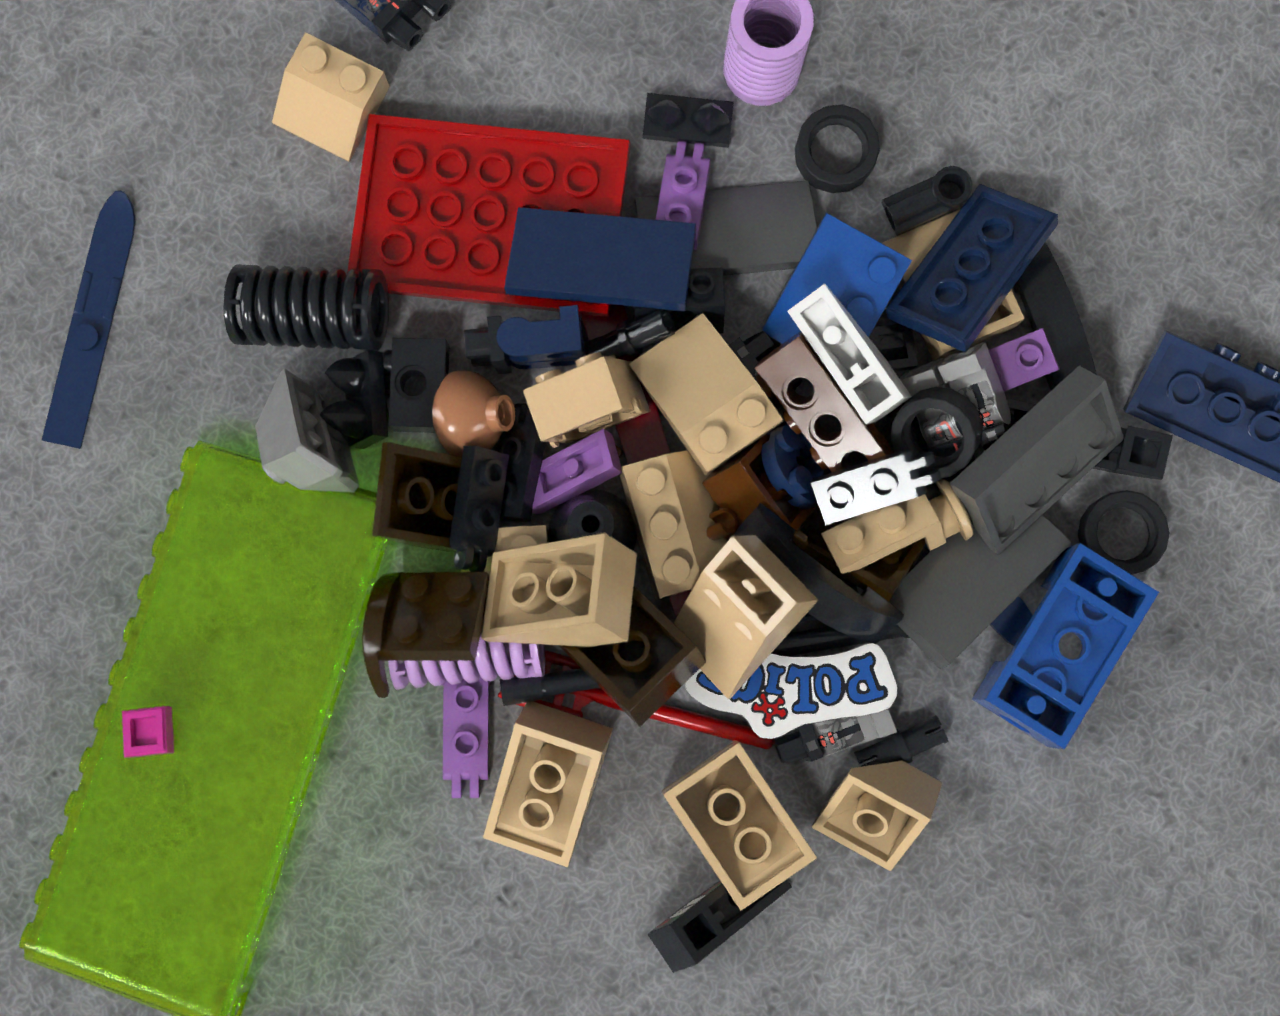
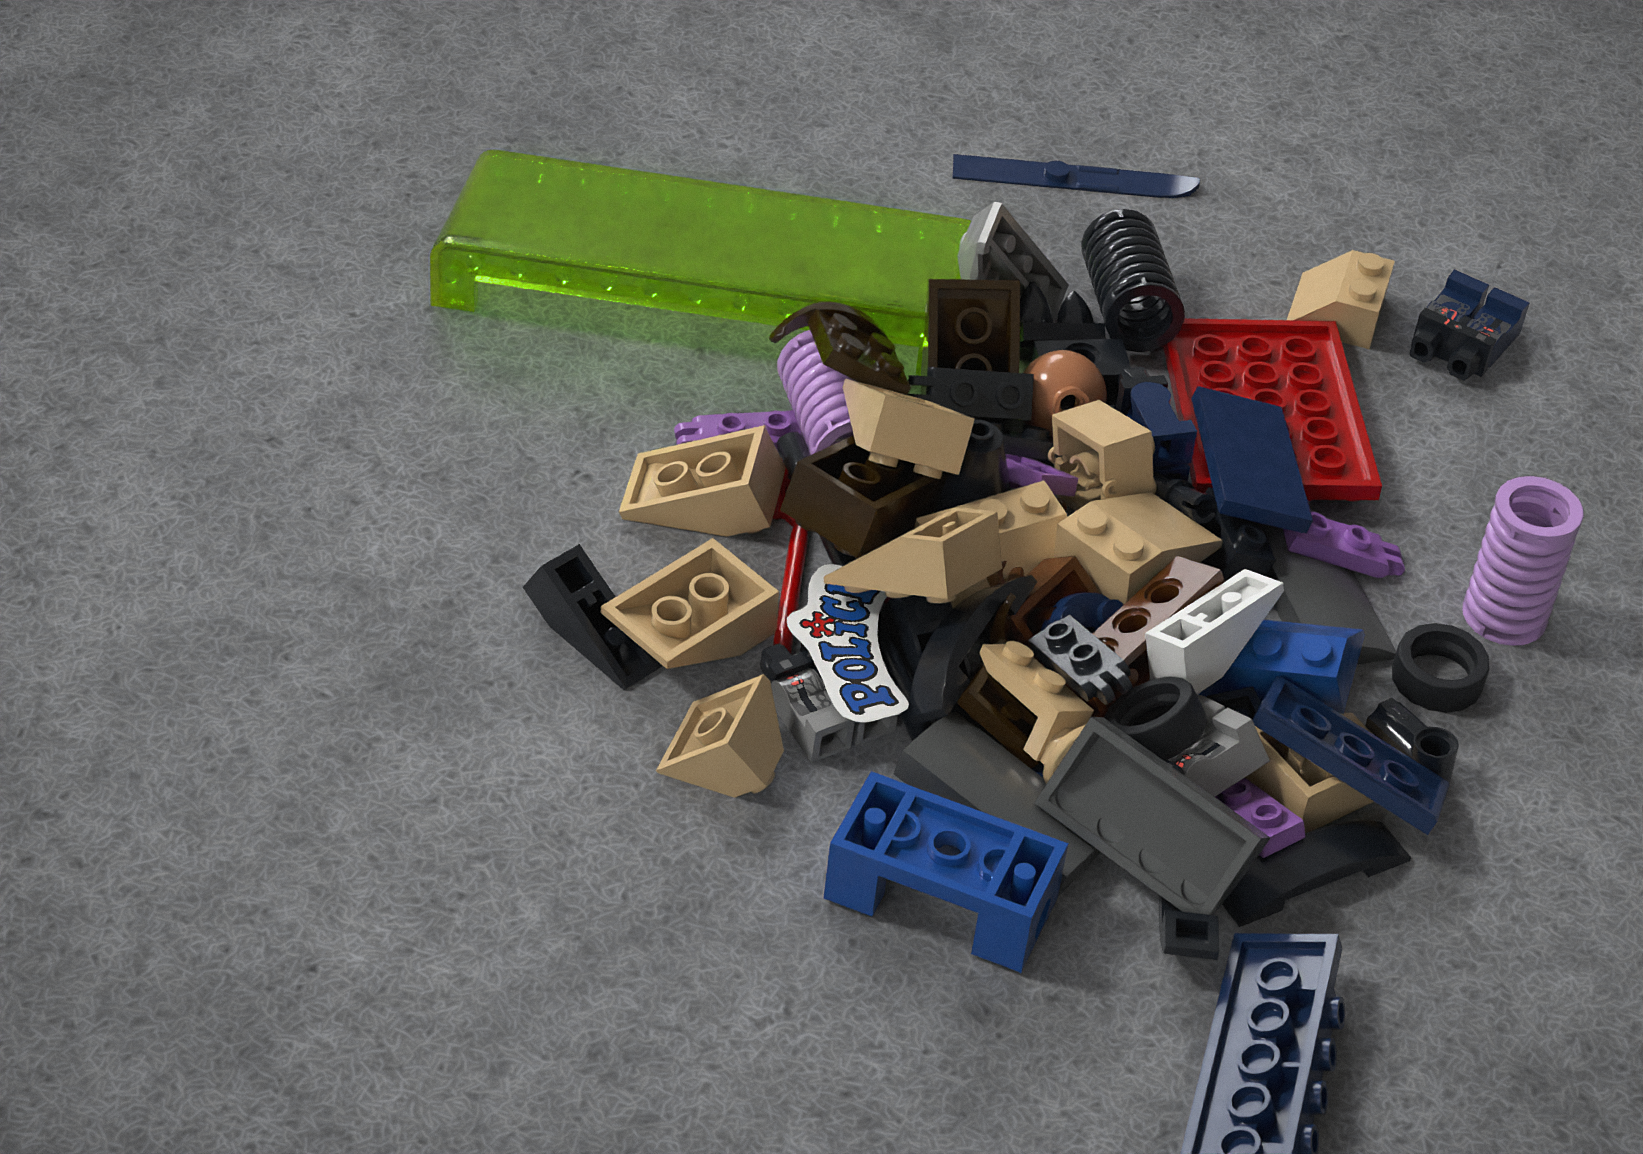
camera: 80 degrees right, 40 degrees down
(147, 731) = (704, 196): dark pink tile -> none
(688, 120) = (1424, 554): black tile -> none
(904, 744) = (801, 765): black pin -> none
(1150, 512) = (1085, 974): black tyre -> none

